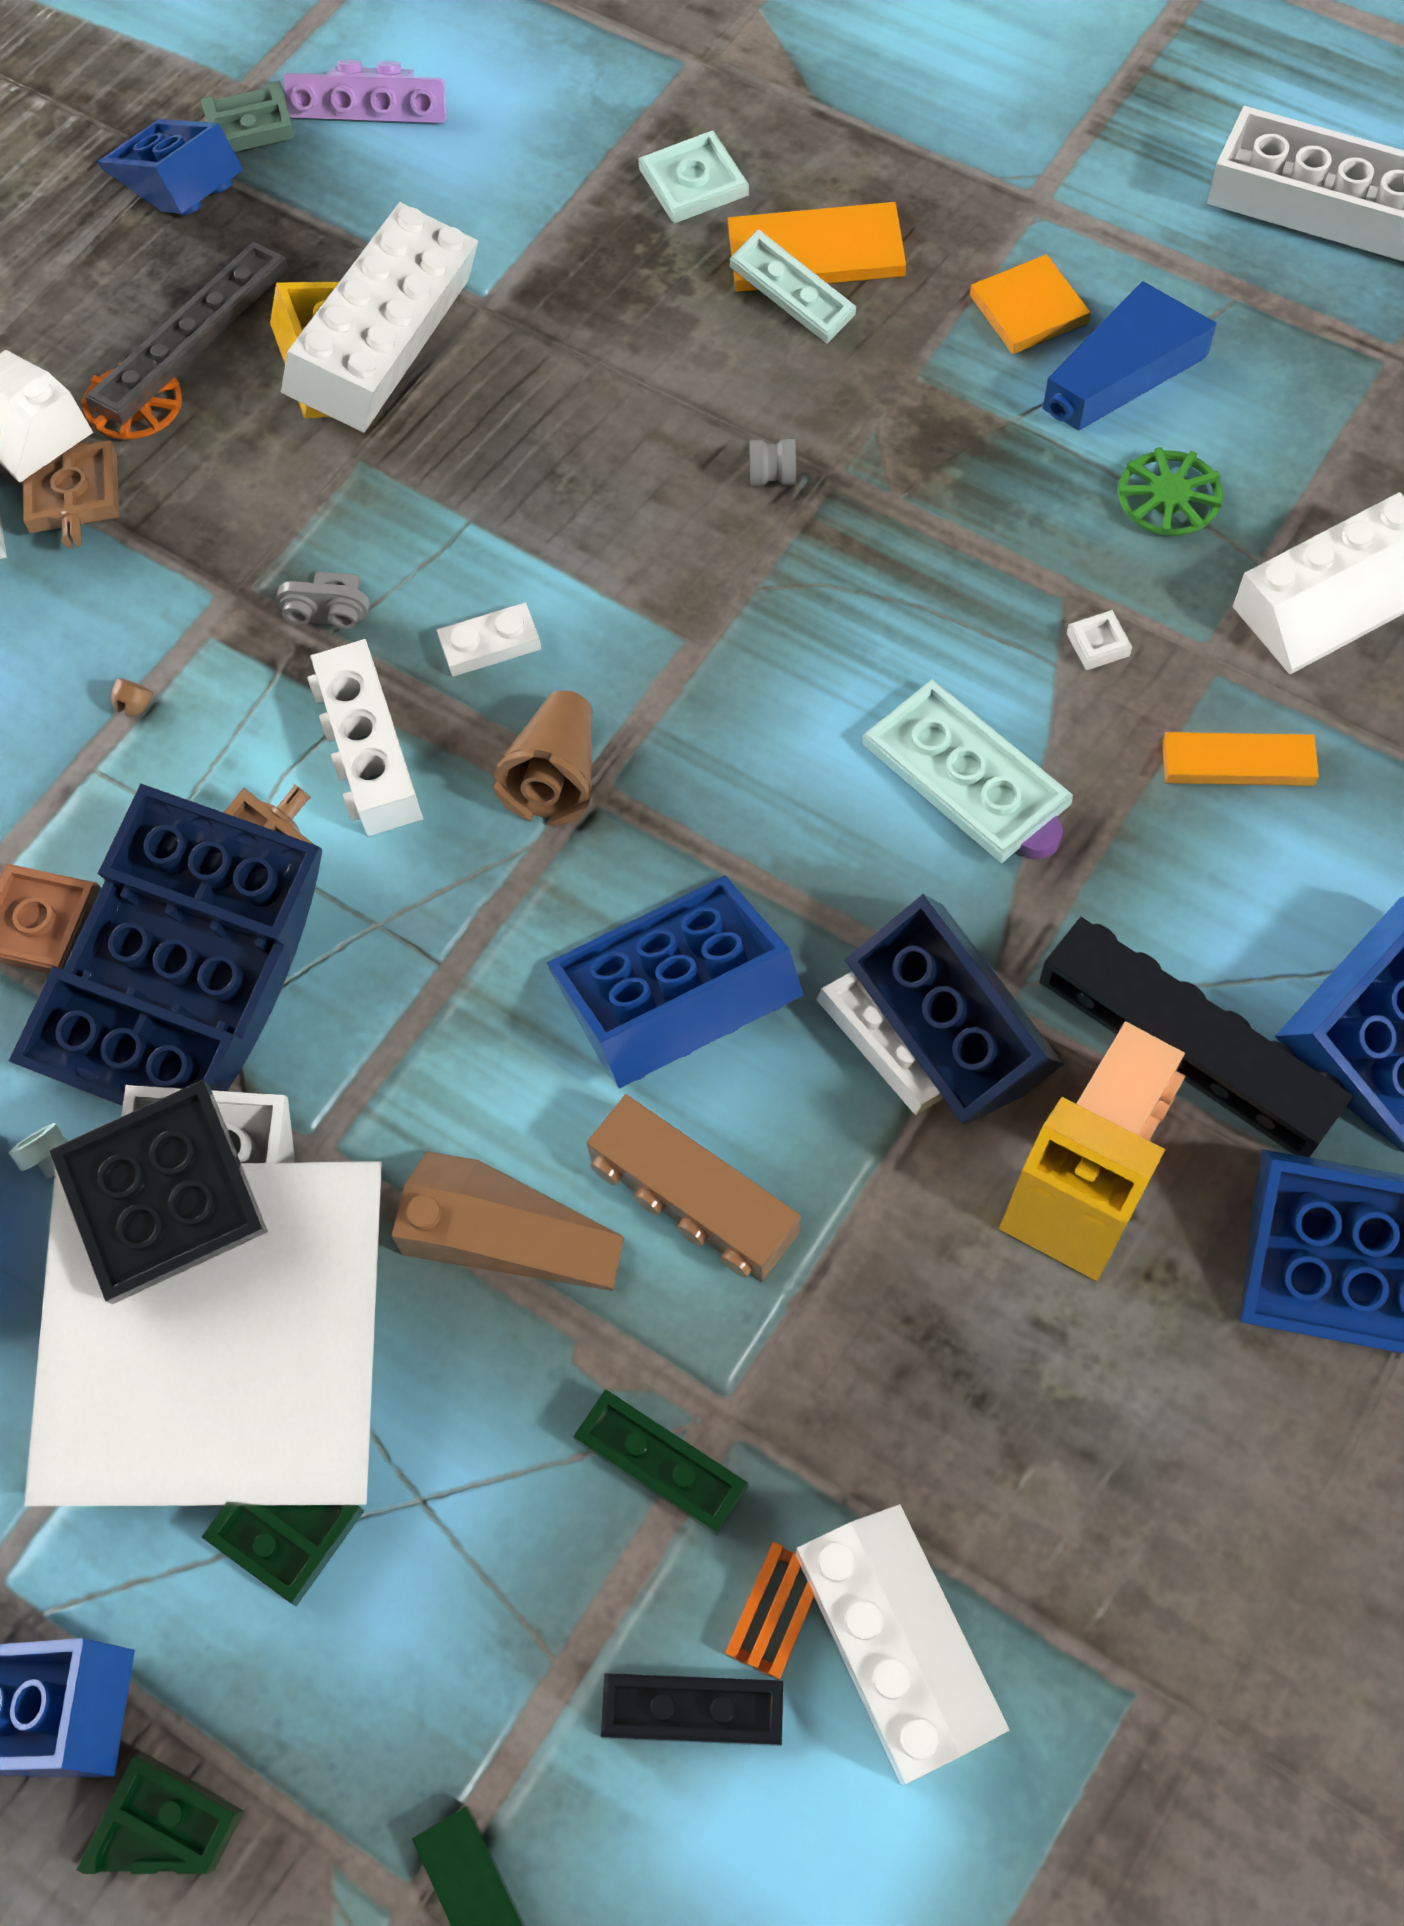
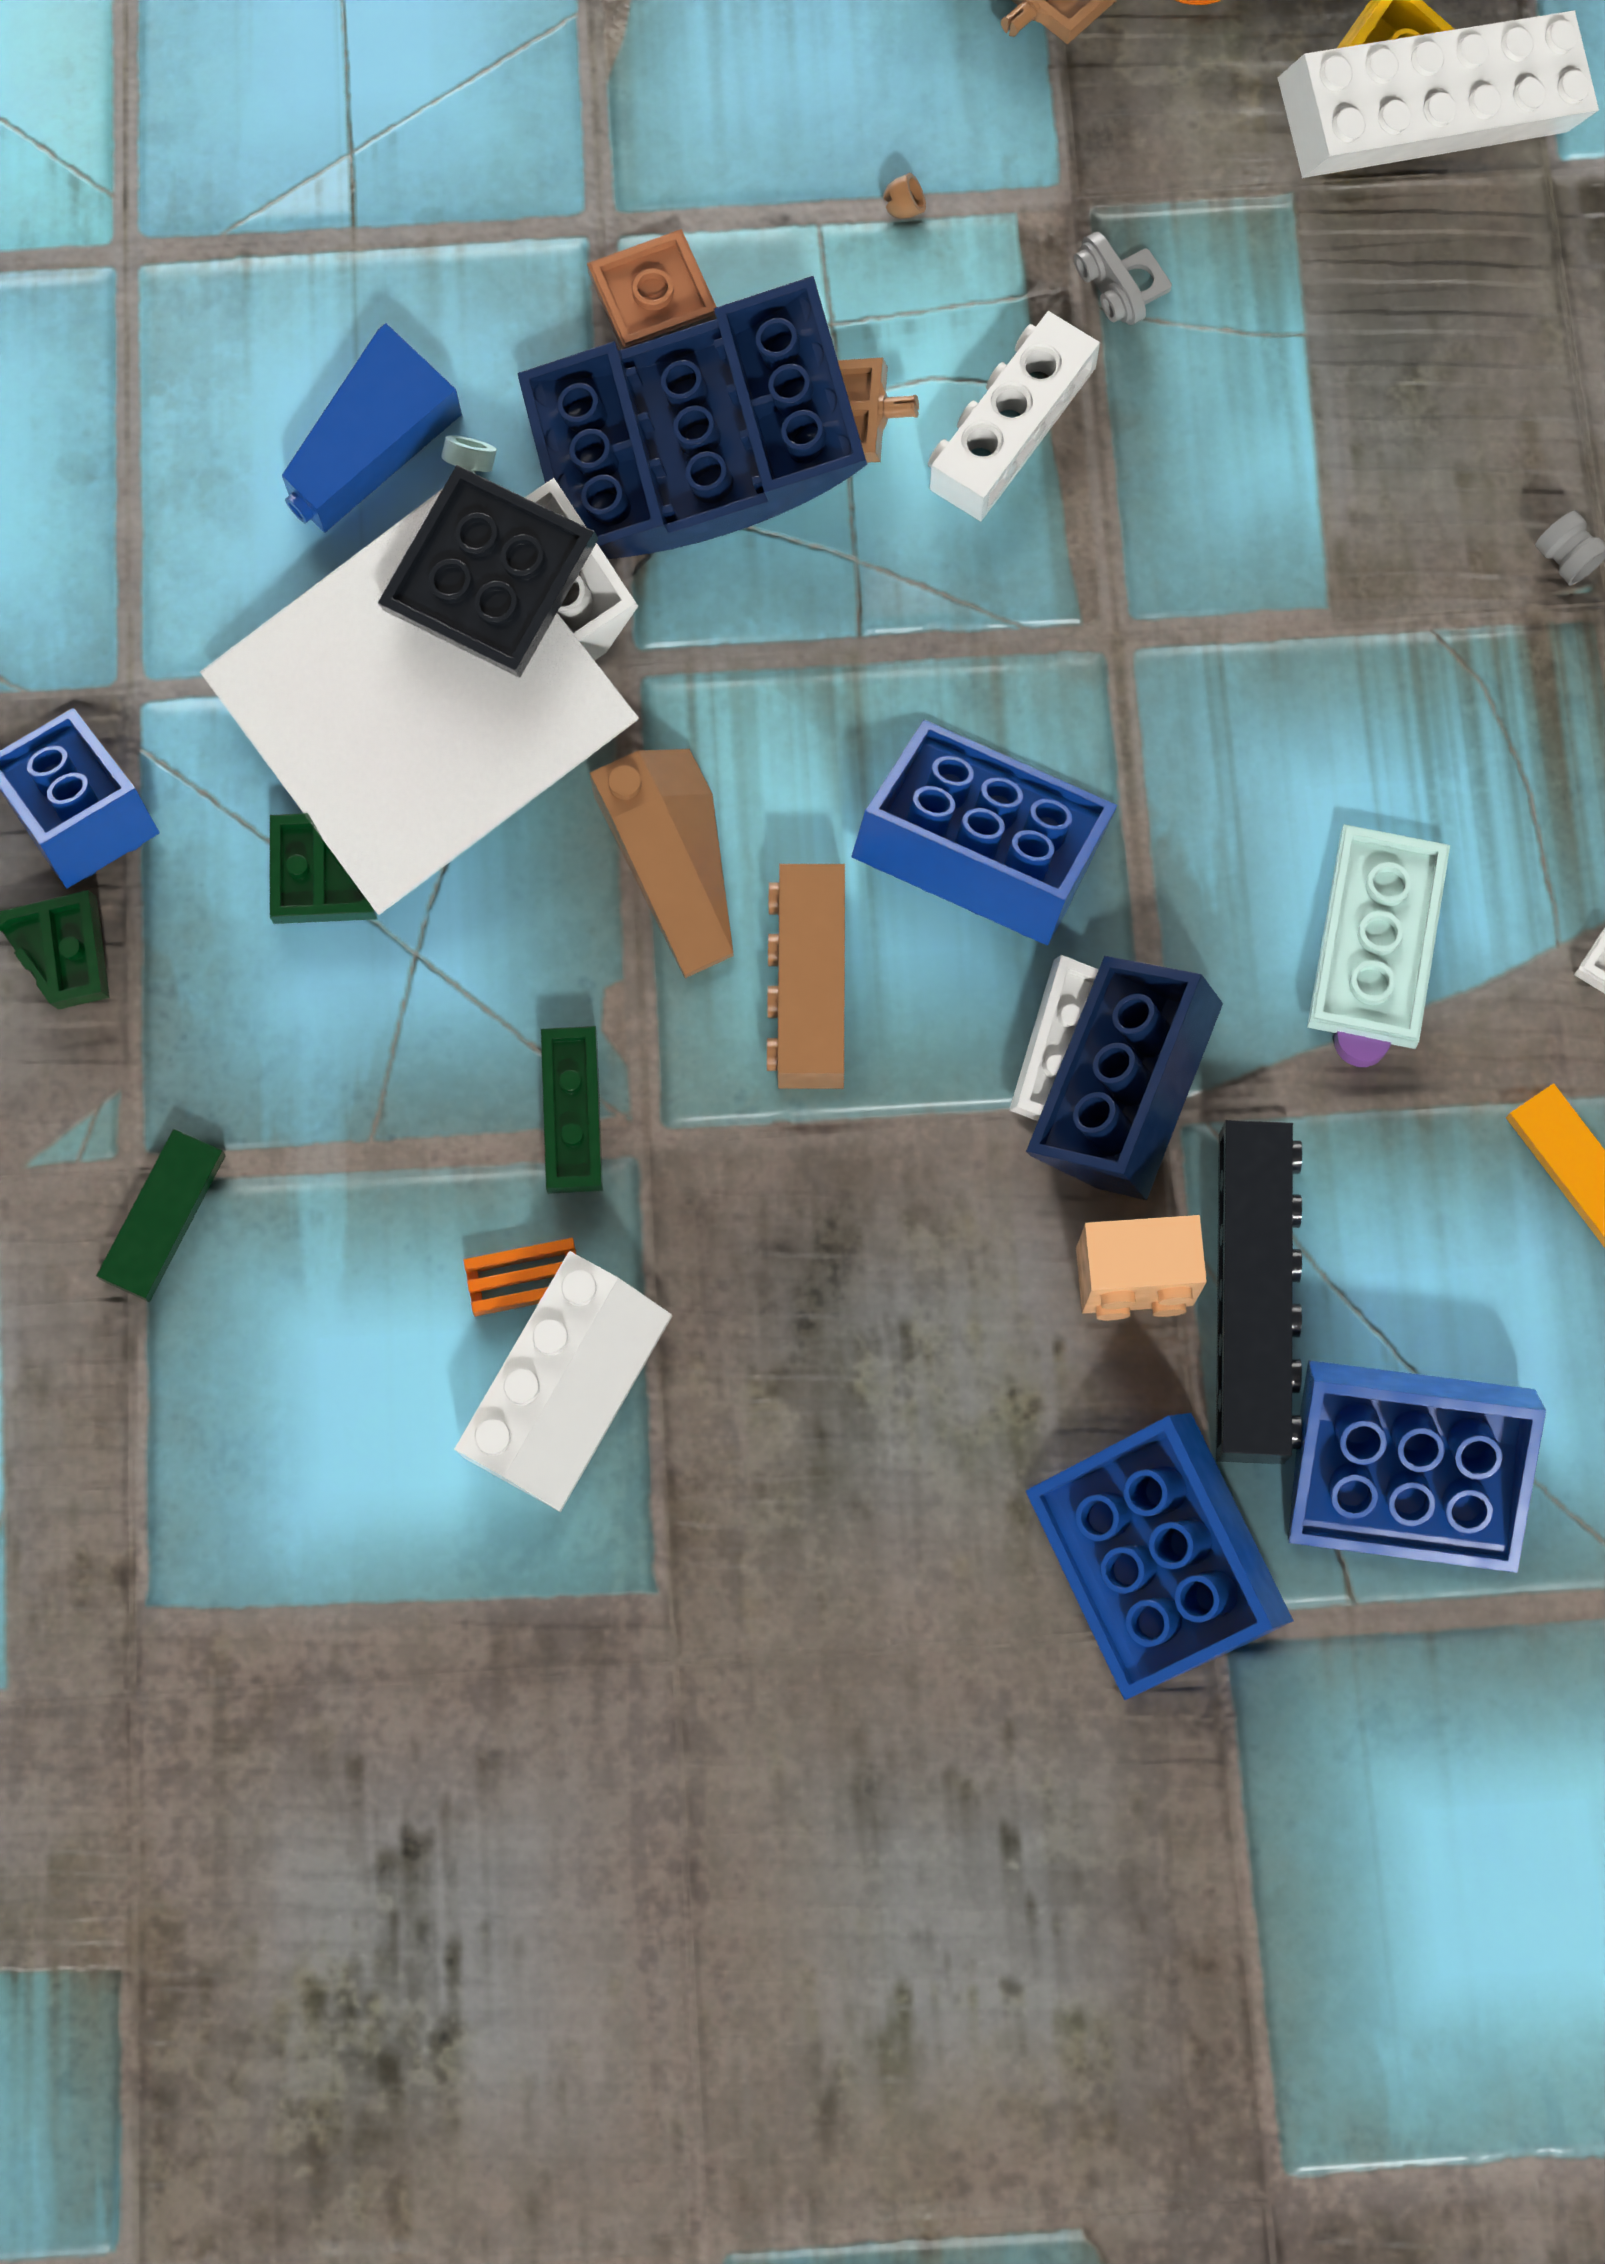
camera: 50 degrees right, 10 degrees up
(489, 639) = (1193, 442): white plate -> none
(550, 762) = (1108, 581): medium nougat cone -> none
(692, 1709) = (407, 1266): black tile -> none
(1079, 1188) = (1029, 1273): yellow slope -> none

